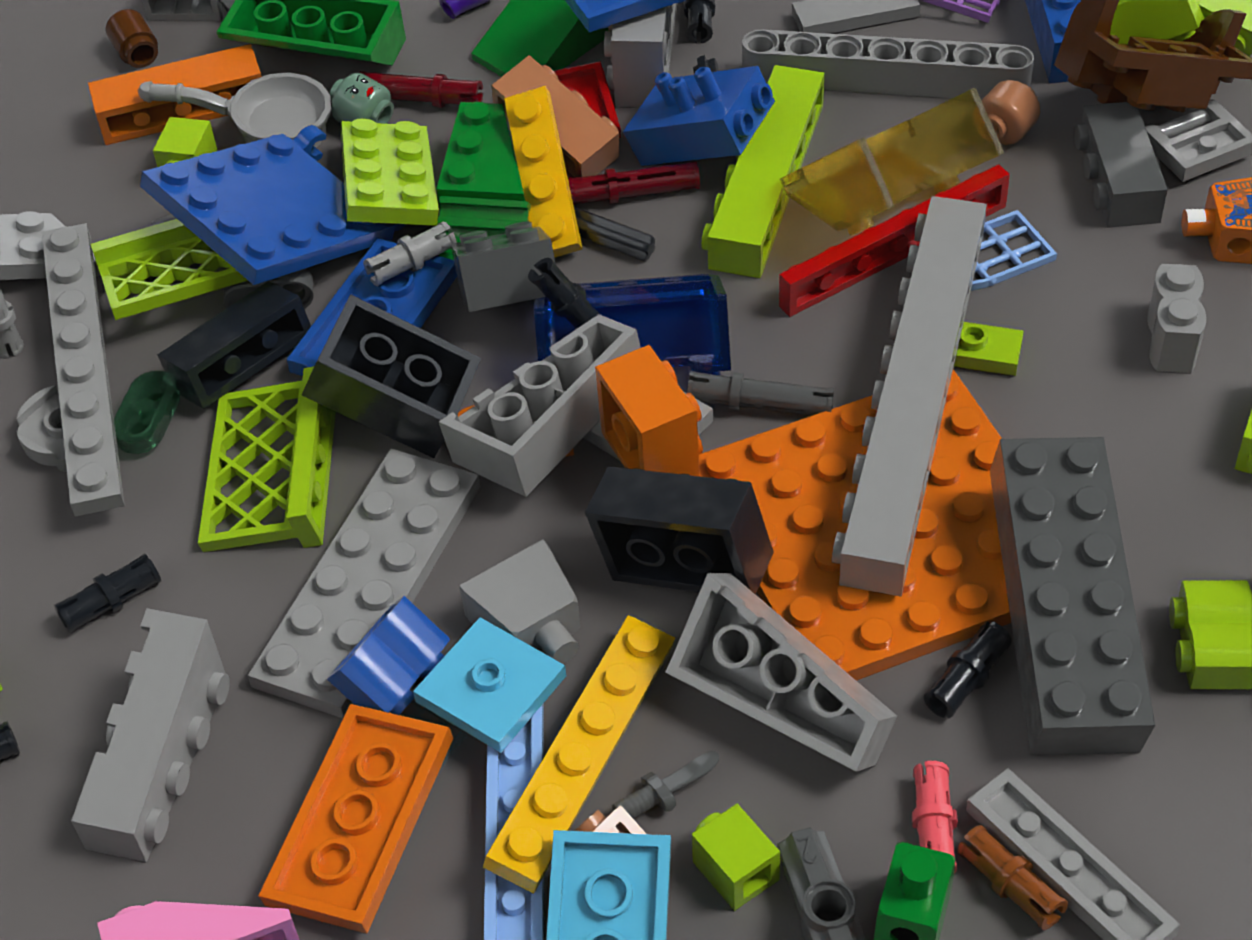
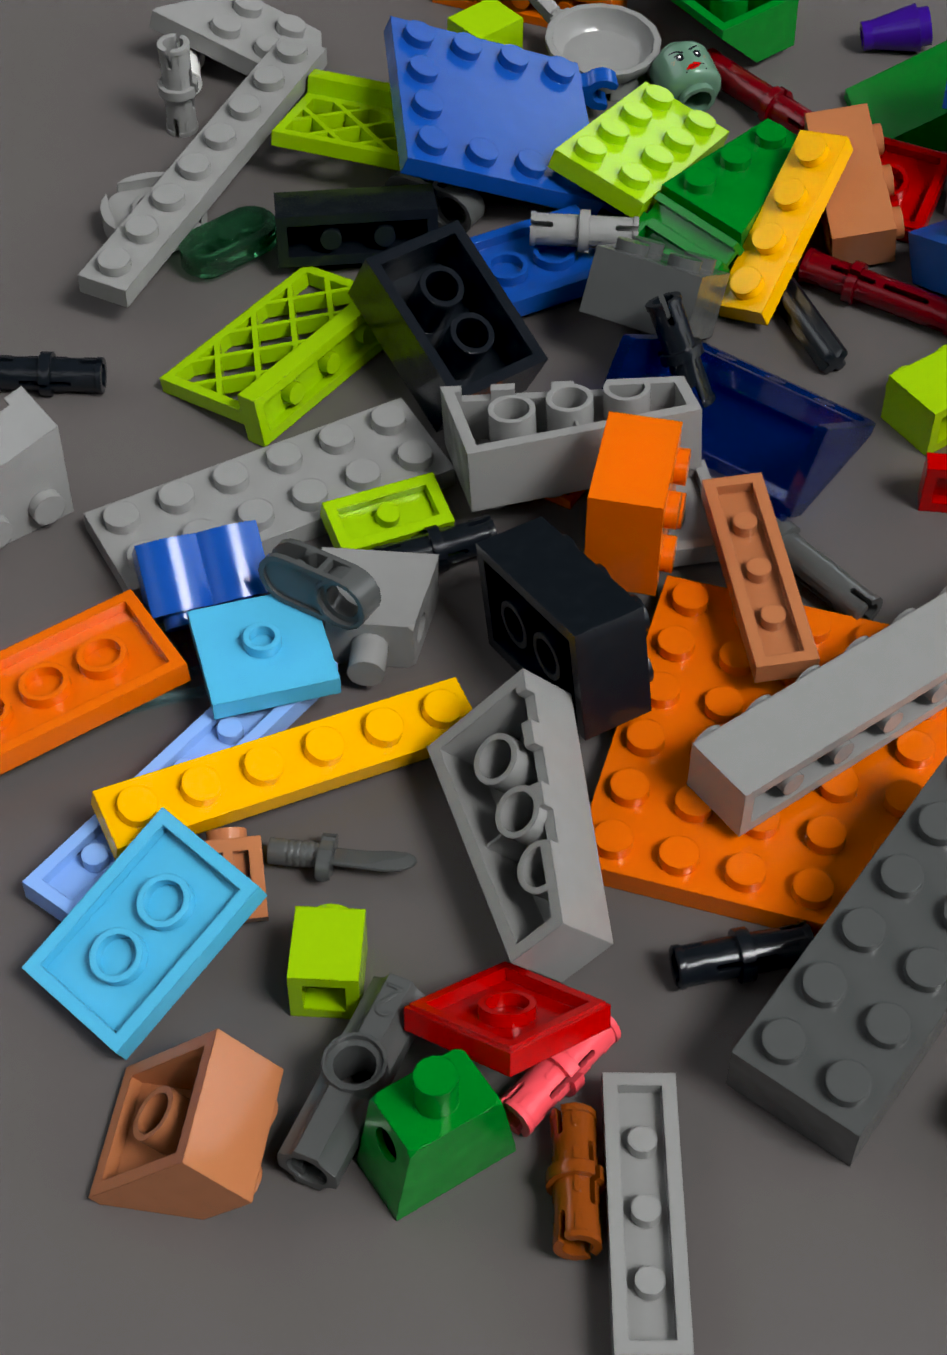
camera: 35 degrees right, 0 degrees up
(469, 537) = (386, 513): none -> lime plate
(489, 612) = (309, 582): none -> dark grey piece
(526, 529) = (451, 542): none -> black pin
(763, 421) = (759, 577): none -> nougat plate
(889, 806) = (507, 1017): none -> red plate

